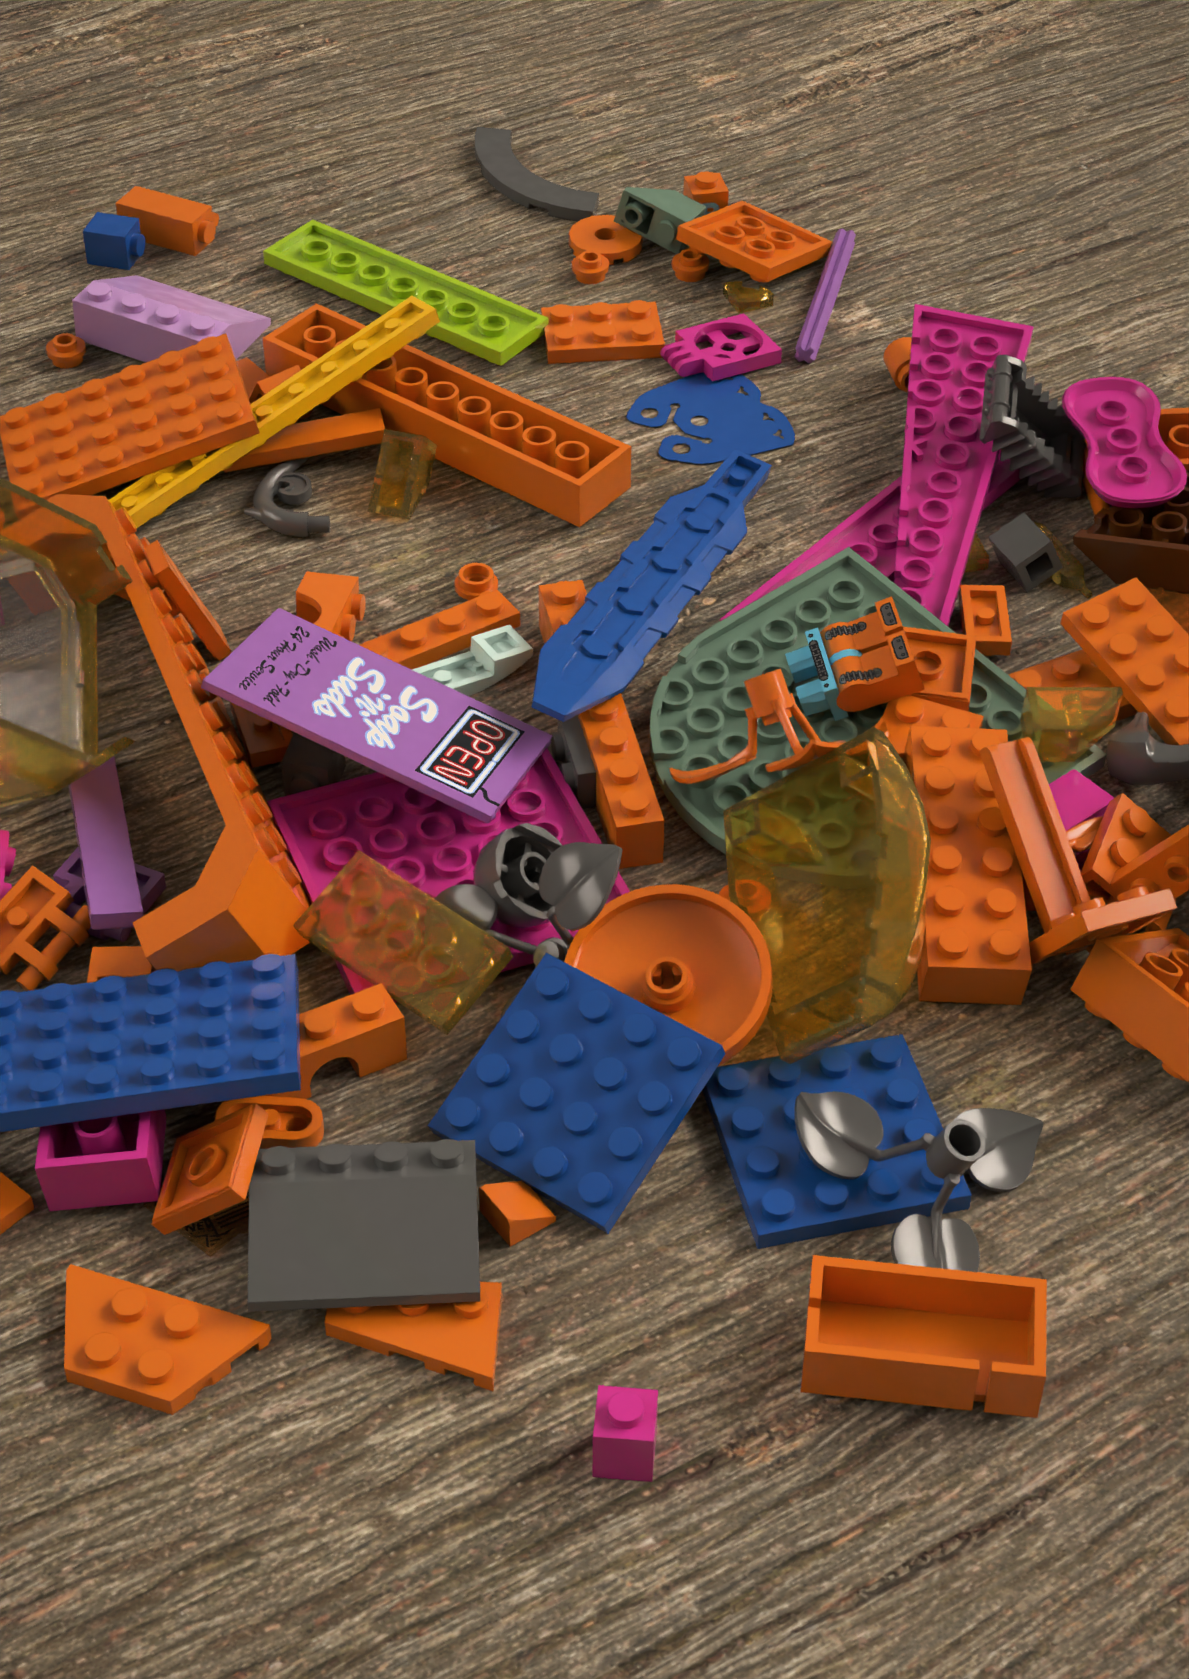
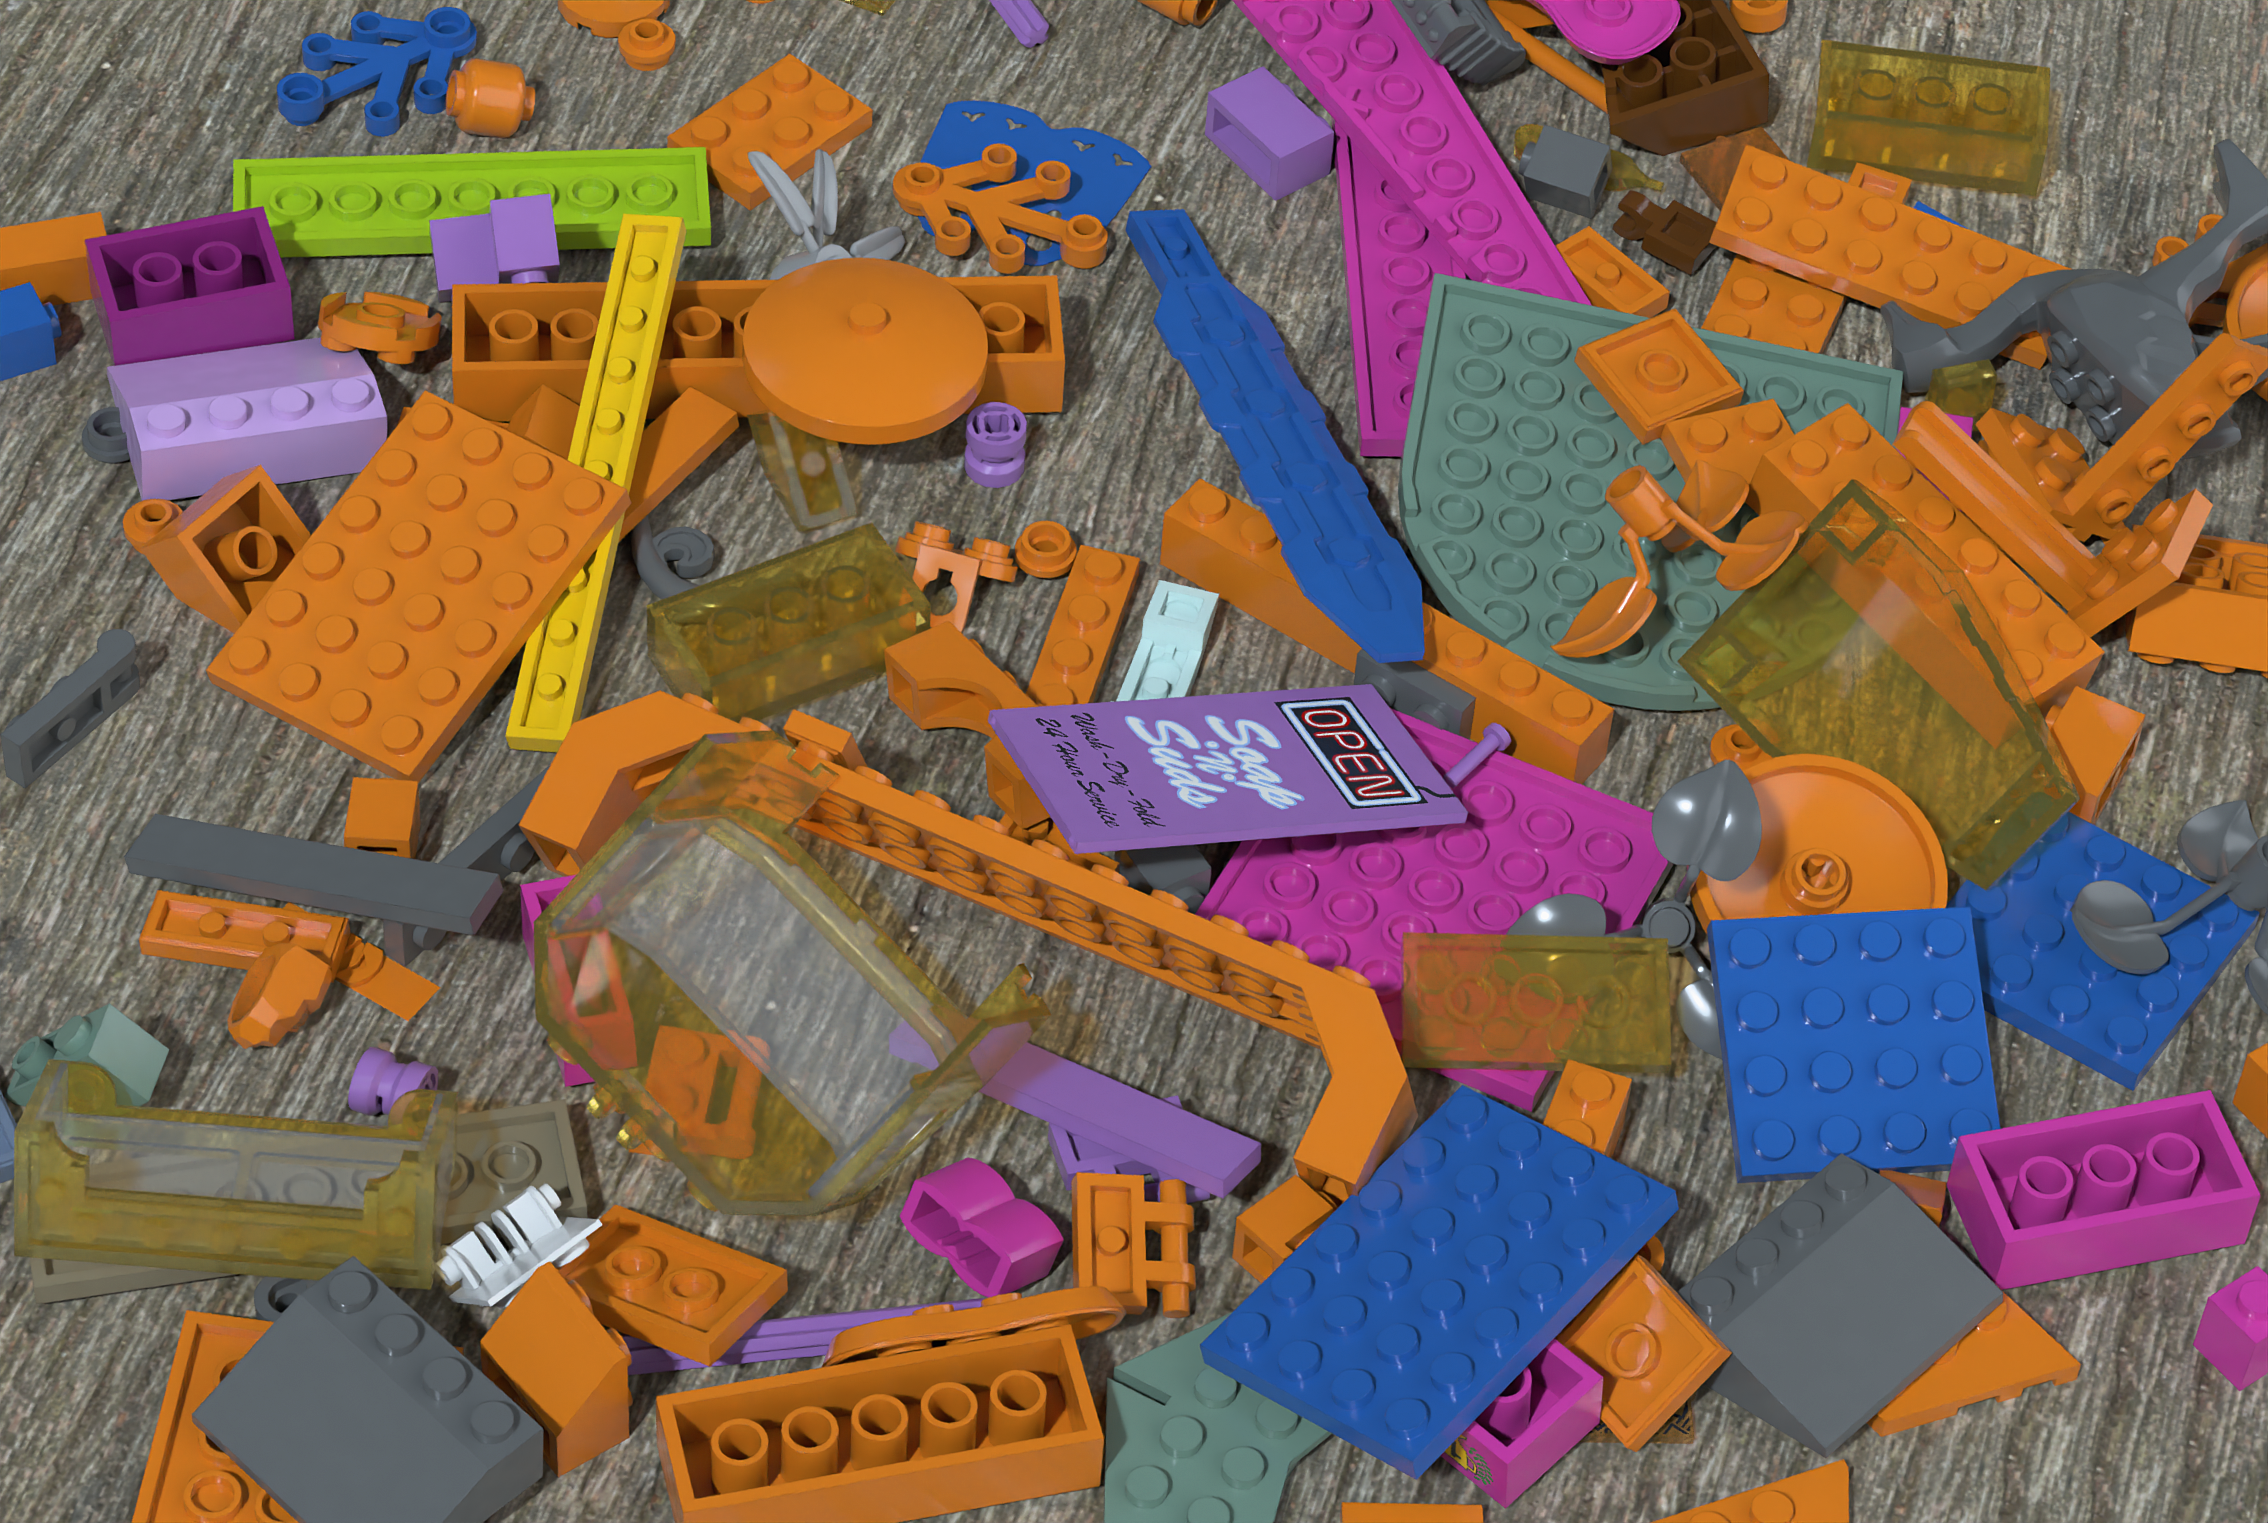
camera: 45 degrees left, 5 degrees up
(73, 359) = (228, 547): none -> orange slope
(210, 256) = (190, 287): none -> magenta brick
(267, 309) = (381, 323): none -> orange plate
(272, 537) = (787, 626): none -> clear yellow brick
(366, 294) = (500, 247): none -> medium lavender brick
(414, 555) = (935, 552): none -> orange bracket
(471, 250) = (489, 98): none -> orange head
(471, 425) = (864, 351): none -> orange dish
(490, 219) = (441, 38): none -> blue plant
(511, 873) = (1572, 854): dark grey cylinder -> none
(513, 519) = (995, 444): none -> medium lavender wheel
(548, 365) = (820, 217): none -> light grey plant
(584, 801) = (1494, 739): none -> medium lavender piece
(629, 1280) = (2102, 1190): none -> dark pink brick
(647, 392) = (929, 191): none -> orange plant
(715, 362) = (928, 102): dark pink piece -> none
(856, 664) = (1619, 408): hips -> none
(872, 452) = (1269, 133): none -> medium lavender brick
(967, 1033) = (2096, 745): none -> orange slope
(1049, 611) = (1670, 234): none -> reddish brown plate
(1068, 719) = (1852, 358): clear yellow slope -> none
(1137, 782) = (1964, 389): none -> clear yellow tile

